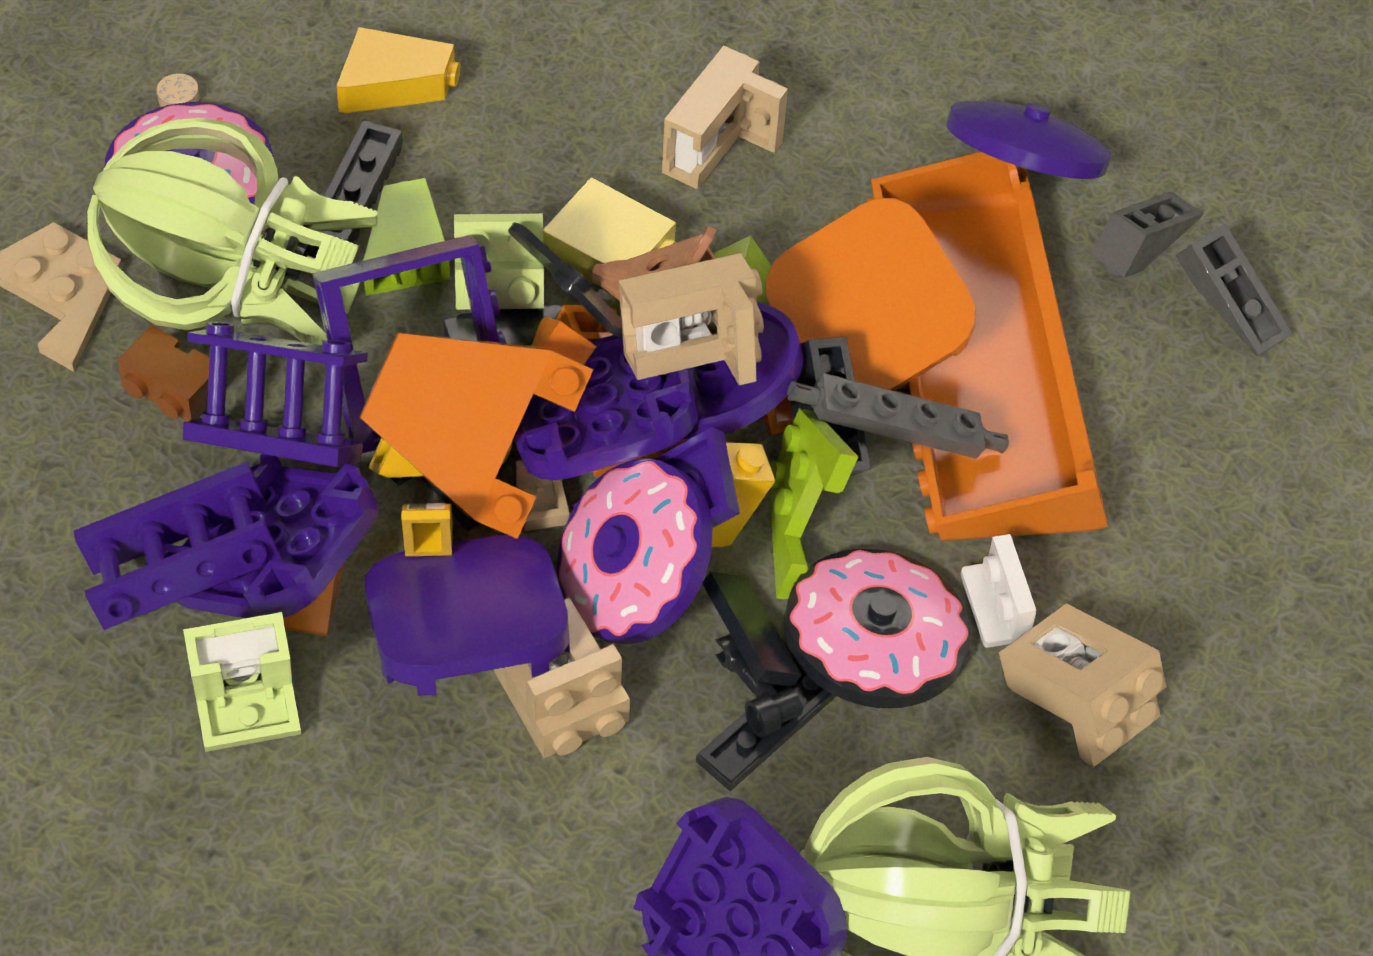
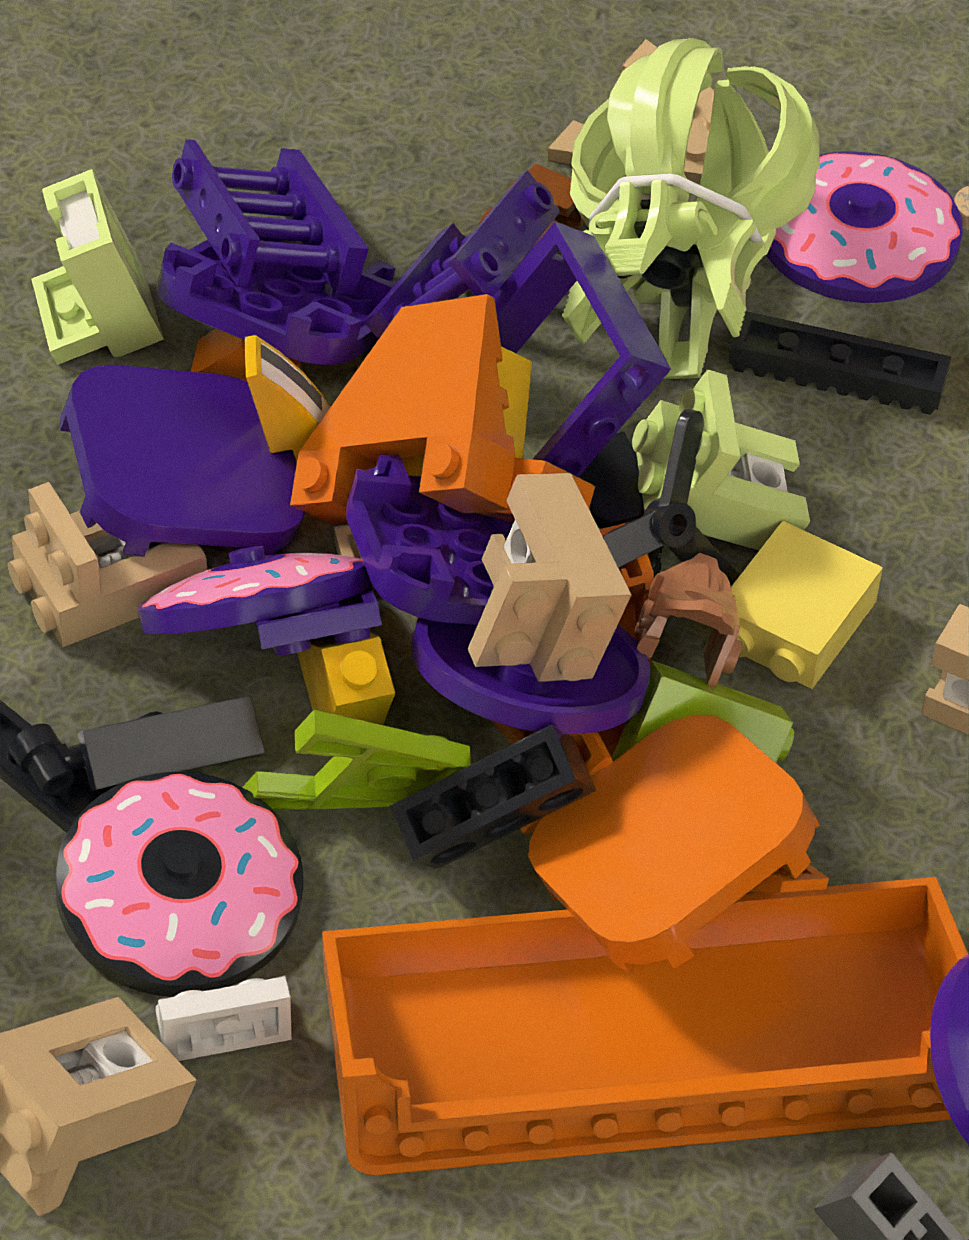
camera: 90 degrees right, 5 degrees down
(404, 223) = (785, 399): lime slope -> none
(898, 416) = (475, 870): dark grey plate -> none

